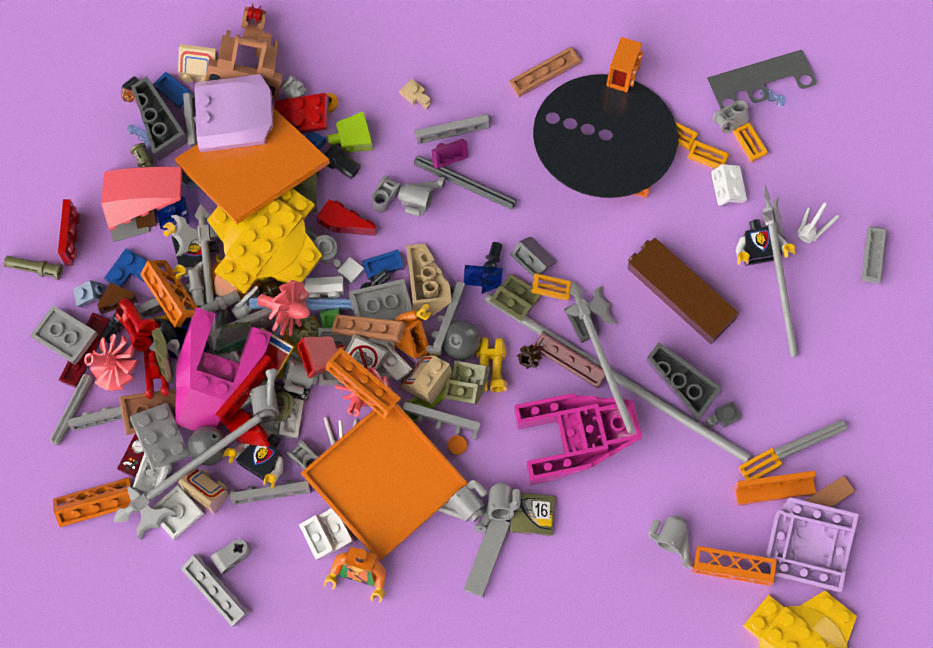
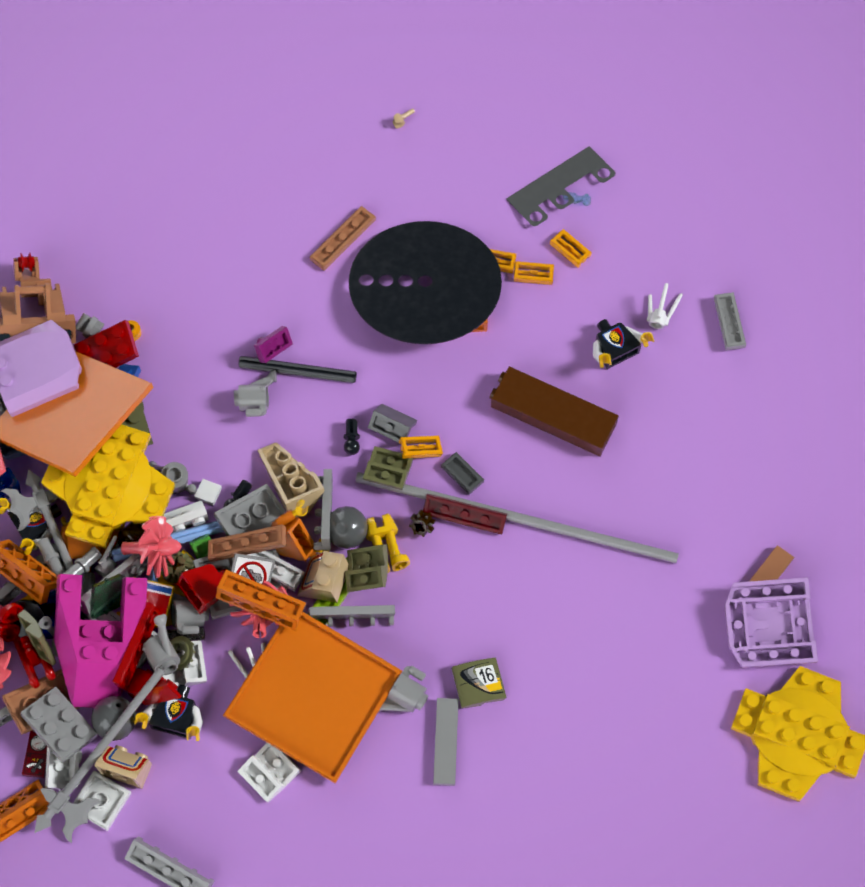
camera: 20 degrees left, 5 degrees down
(228, 557) = (172, 830): light grey piece -> none
(268, 493) = (195, 747): light grey hinge -> none
(302, 455) = (218, 697): light grey piece -> none
(340, 220) = (183, 444): red slope -> none
(341, 162) = (164, 386): black piece -> none
(352, 134) = (166, 355): lime torso -> none
(359, 567) = (317, 794): orange torso -> none
(386, 191) = (219, 401): light grey piece -> none
(390, 261) = (246, 470): blue tile -> none
(415, 93) = (216, 295): tan plate -> none
(452, 129) = (267, 320): light grey hinge -> none
(457, 445) = (377, 636): orange piece -> none
(486, 277) = (348, 457): clear blue slope -> none
(500, 505) = (443, 683): light grey piece -> none
(588, 430) = (509, 578): dark pink wedge -> none
(601, 308) = (479, 453): light grey piece -> none
(625, 64) = (422, 207): orange piece -> none
(672, 537) = (630, 661): light grey piece -> none
(685, 381) = (589, 500): dark grey wedge -> none
(725, 415) = (639, 521): dark grey plate -> none
(728, 184) = (563, 294): white bracket -> none
(733, 116) = (545, 227): light grey piece -> none
(734, 573) = (702, 678): orange fence -> none
(774, 221) = (621, 314): light grey piece -> none
(774, 457) = (702, 549): light orange tile -> none
(775, 488) = (714, 578): orange fence -> none
(811, 439) = (732, 519): light grey axle -> none

